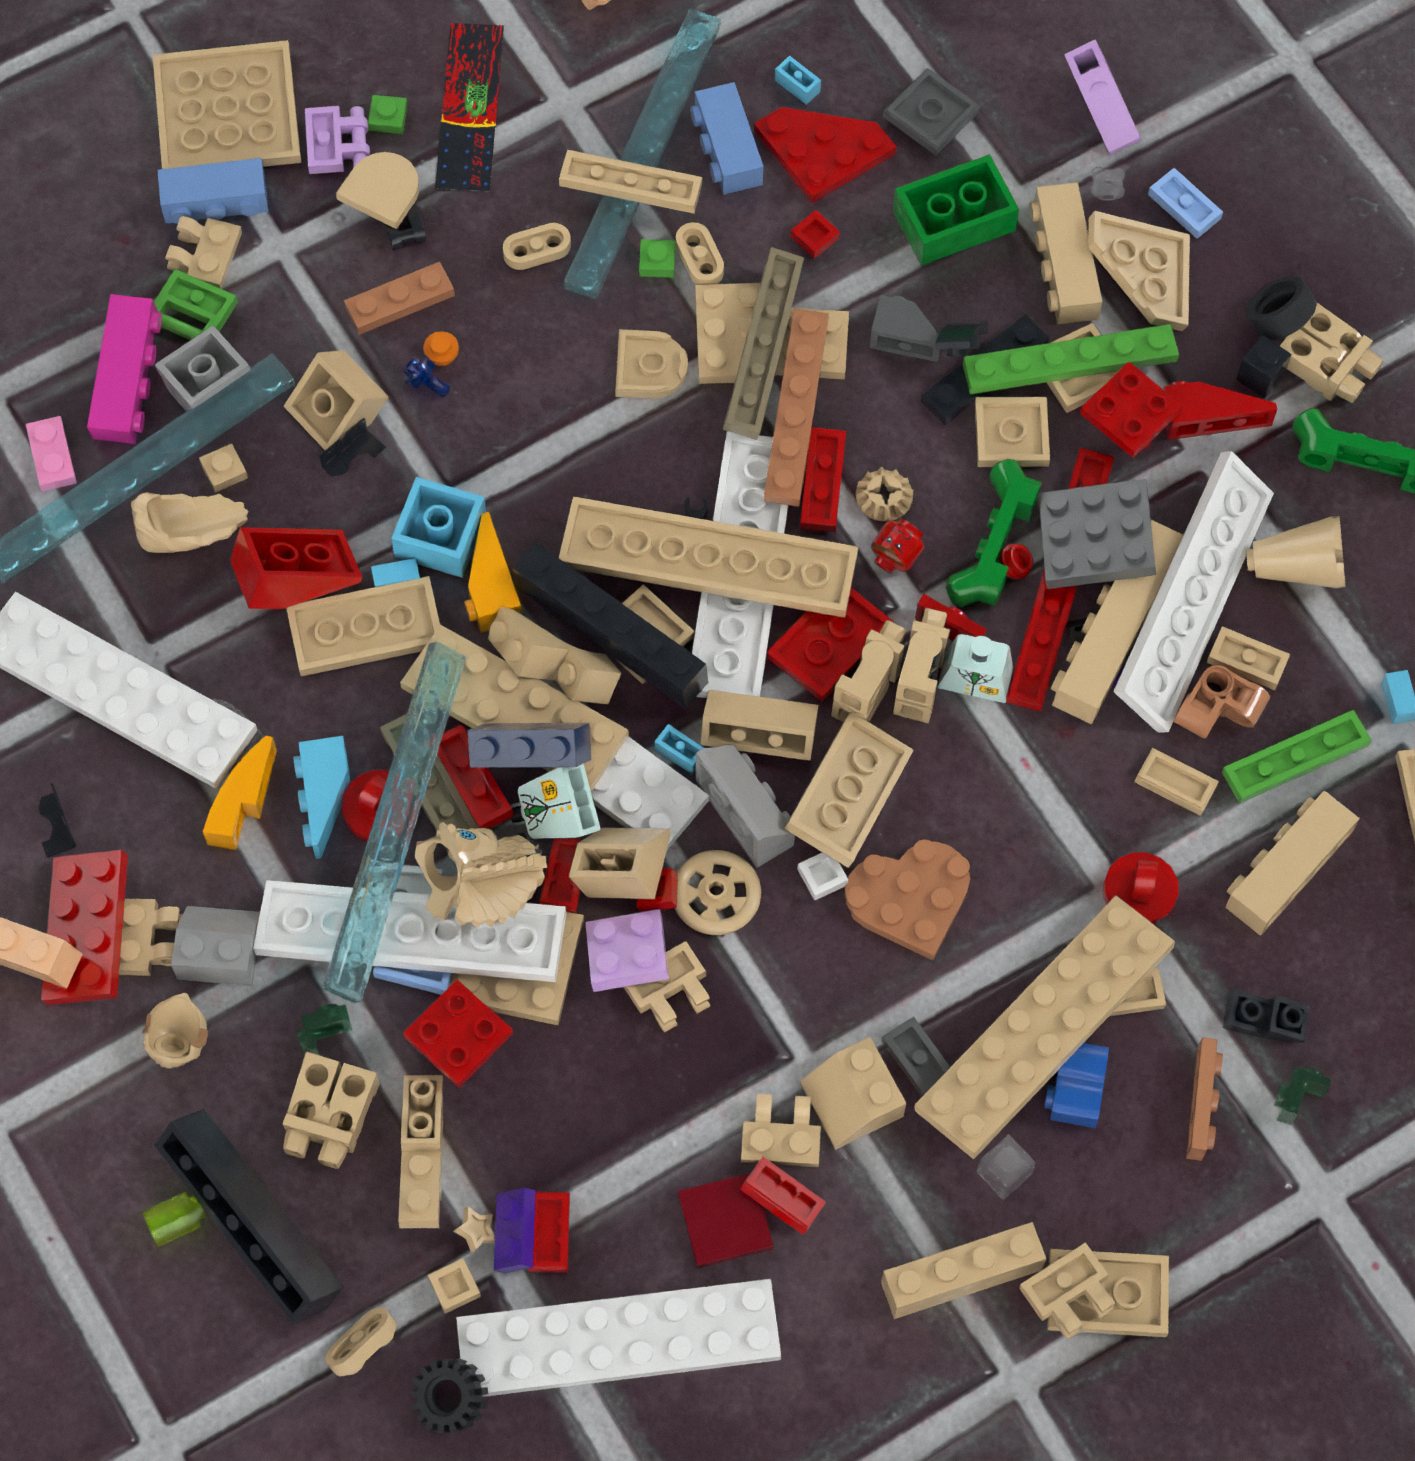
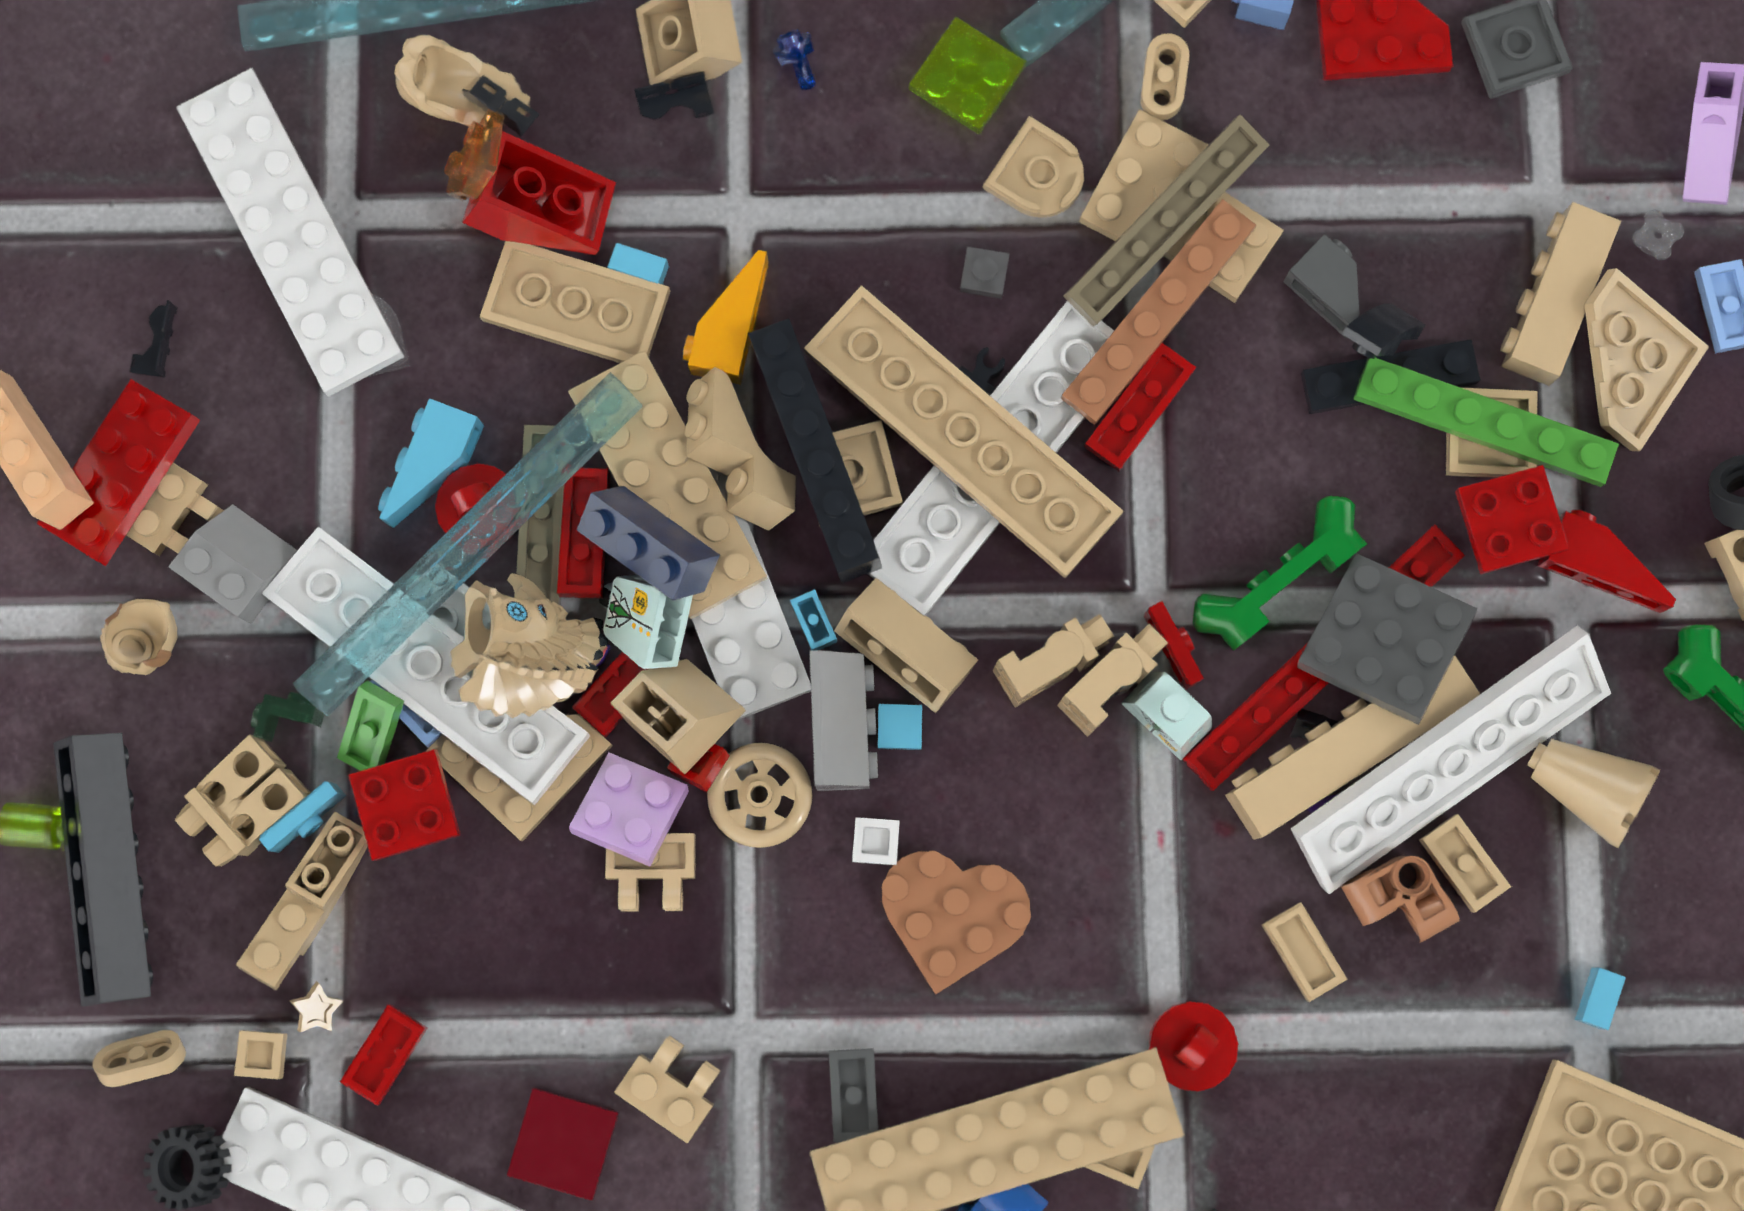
camera: 35 degrees right, 15 degrees up
(223, 468) = (535, 45): tan plate -> none
(233, 520) = (487, 100): none -> black piece
(235, 558) = (478, 159): none -> clear orange plate
(241, 795) = (349, 417): light orange slope -> none
(382, 1095) = (303, 818): none -> medium azure plate
(395, 997) = (370, 727): none -> bright green plate
(438, 527) = (707, 238): medium azure brick -> none
(441, 348) = (832, 34): orange plate -> none
(514, 1230) = (350, 1034): dark purple plate -> none
(557, 325) = (967, 75): none -> clear neon green plate
(653, 450) = (984, 272): none -> flat silver plate
(657, 258) = (1119, 54): bright green plate -> none
(782, 1195) = (631, 1156): red plate -> none
(788, 787) = (900, 726): none -> medium azure tile
(815, 234) = (1302, 120): red plate -> none
(826, 646) = (1026, 598): red plate -> none
(849, 789) = (954, 770): tan plate -> none
(854, 1093) = (764, 1093): tan slope -> none
(873, 504) = (1176, 464): tan gear -> none
(897, 546) = (1171, 527): red head -> none
(955, 209) = (1469, 178): green brick -> none
(1012, 430) = (1373, 465): tan plate -> none
(1018, 560) = (1286, 614): red plate -> none
(1263, 366) = (1691, 546): black brick -> none
(1291, 862) = (1366, 1113): tan brick -> none
(1296, 756) = (1447, 1000): bright green plate -> none

